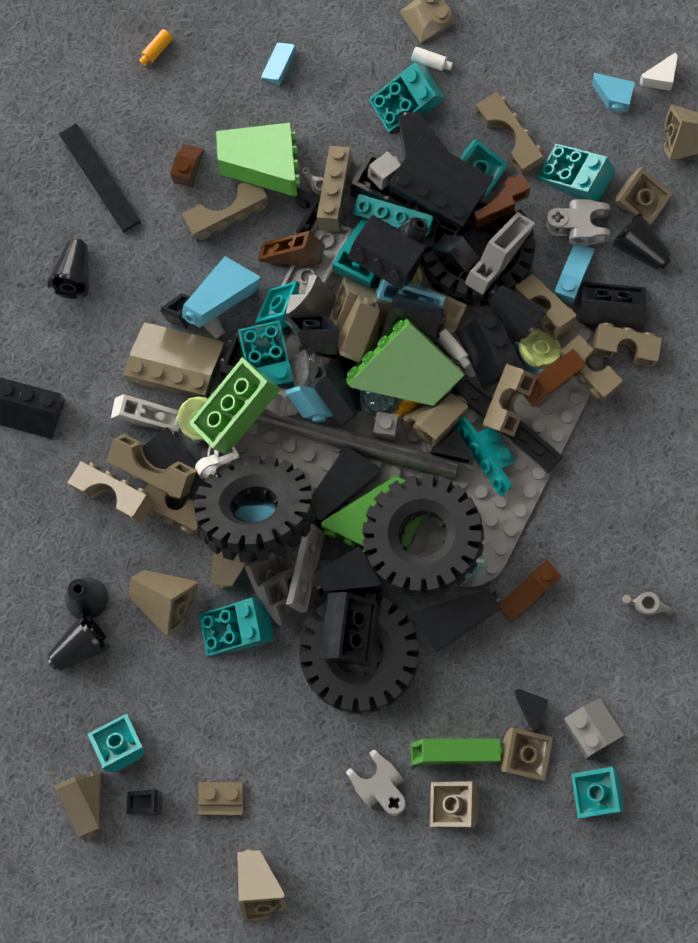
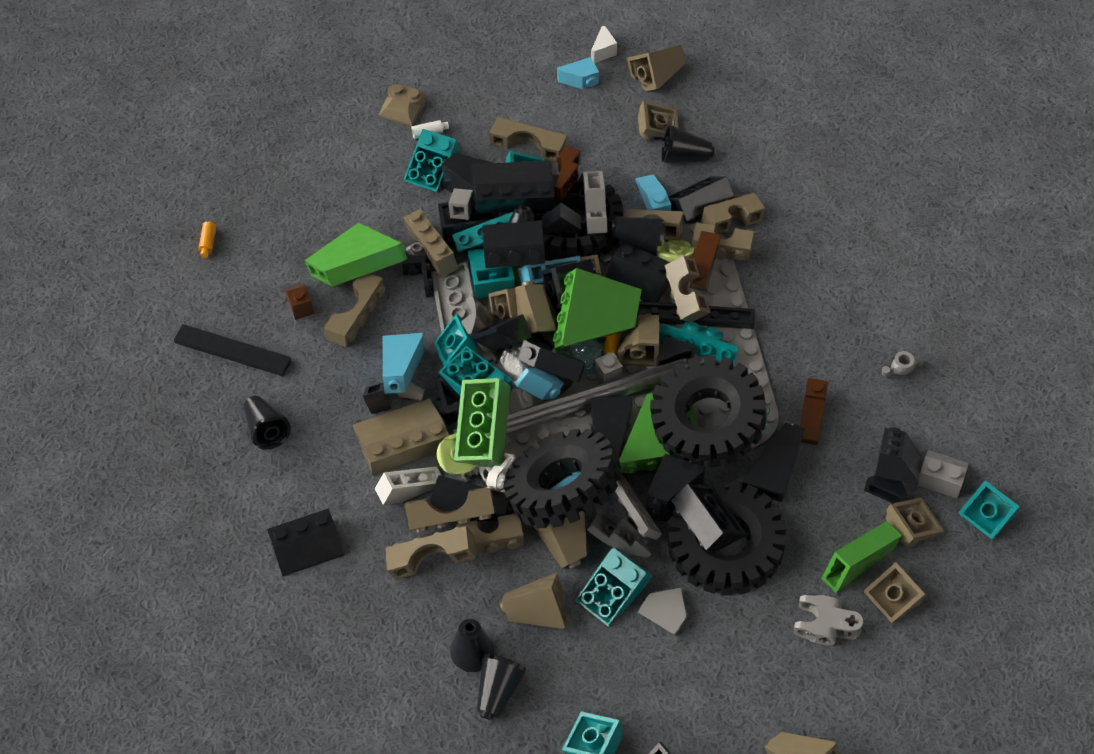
camera: 45 degrees left, 20 degrees down
(220, 798) = (712, 722): dark tan plate -> none
(261, 678) = (665, 609): none -> light grey slope
(279, 63) = (314, 195): slope -> none
(296, 249) = (434, 299): reddish brown slope -> none
(558, 691) = (898, 457): none -> black slope
(577, 172) = (599, 134): teal slope -> none
(577, 222) = (629, 162): light grey piece -> none

